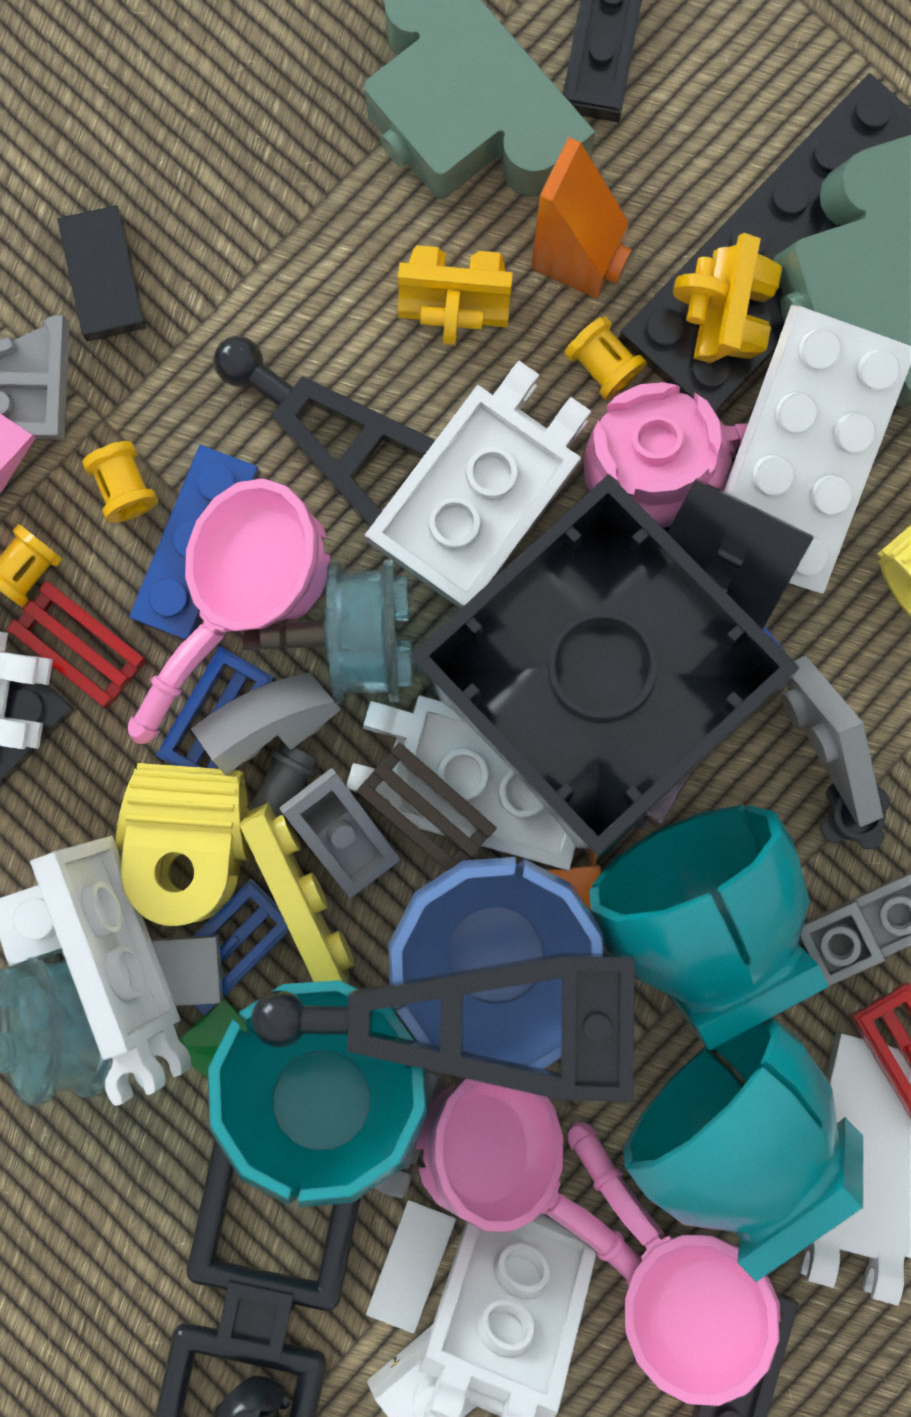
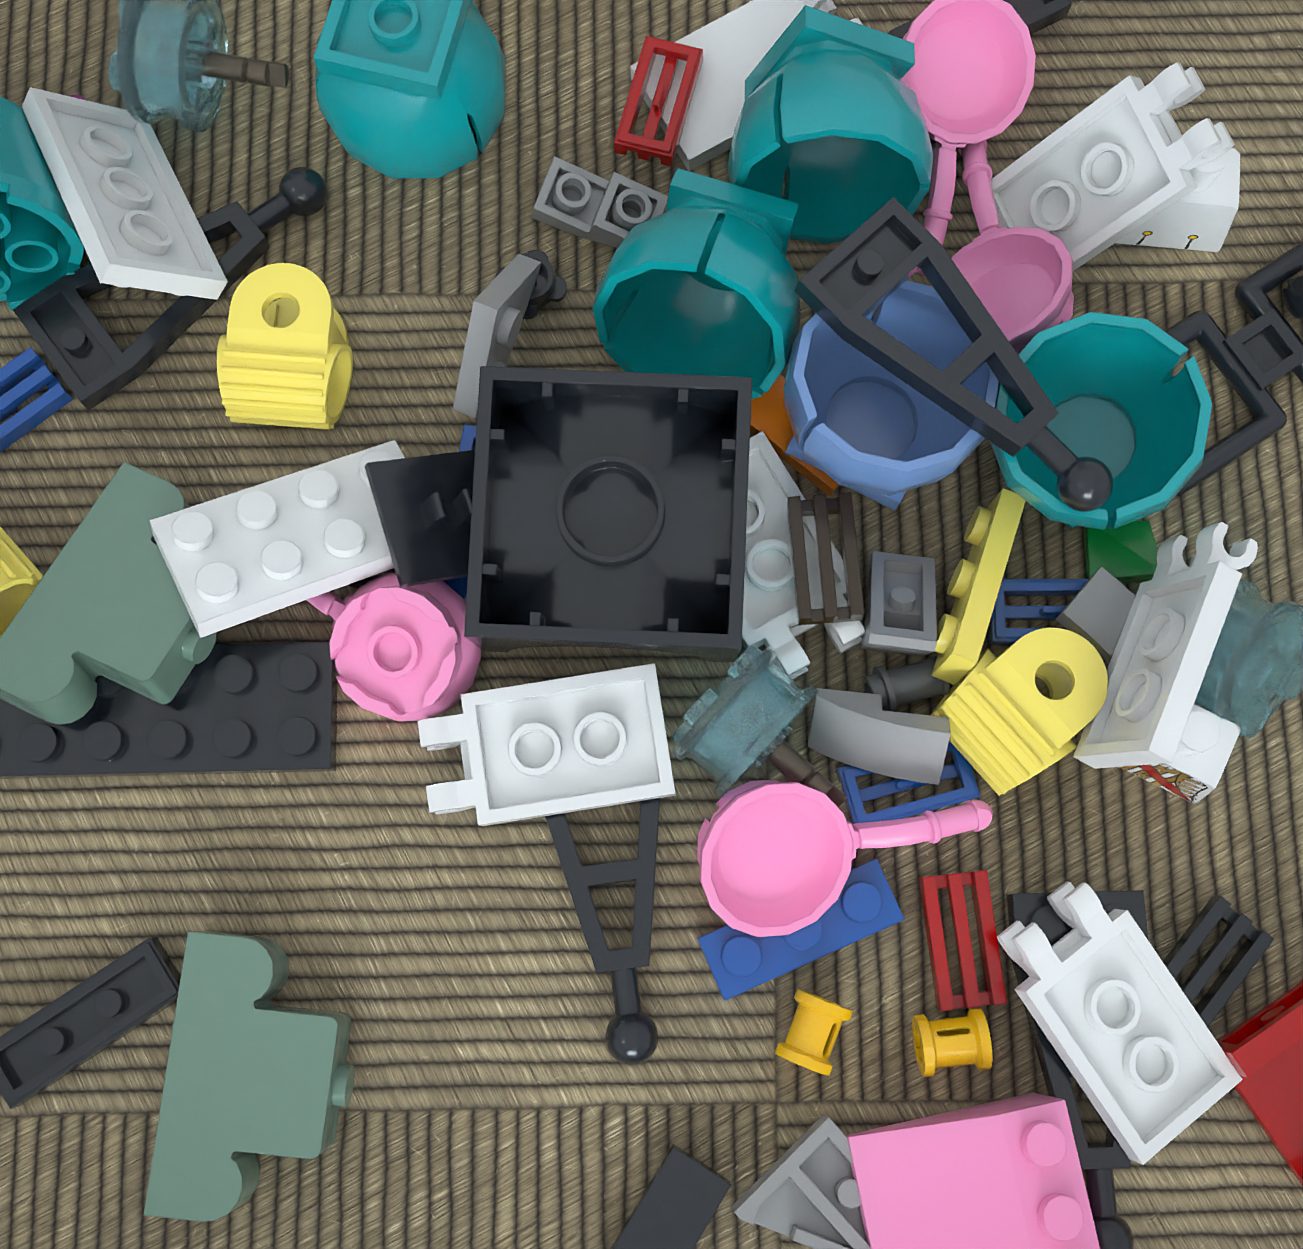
camera: 135 degrees left, 5 degrees down
(411, 1266) = (1126, 288): white sticker -> none
(452, 294) = (424, 917): yellow hips -> none
(579, 225) = (280, 864): orange slope -> none
(605, 357) = (362, 758): yellow bush -> none
(720, 300) = (234, 704): yellow hips -> none

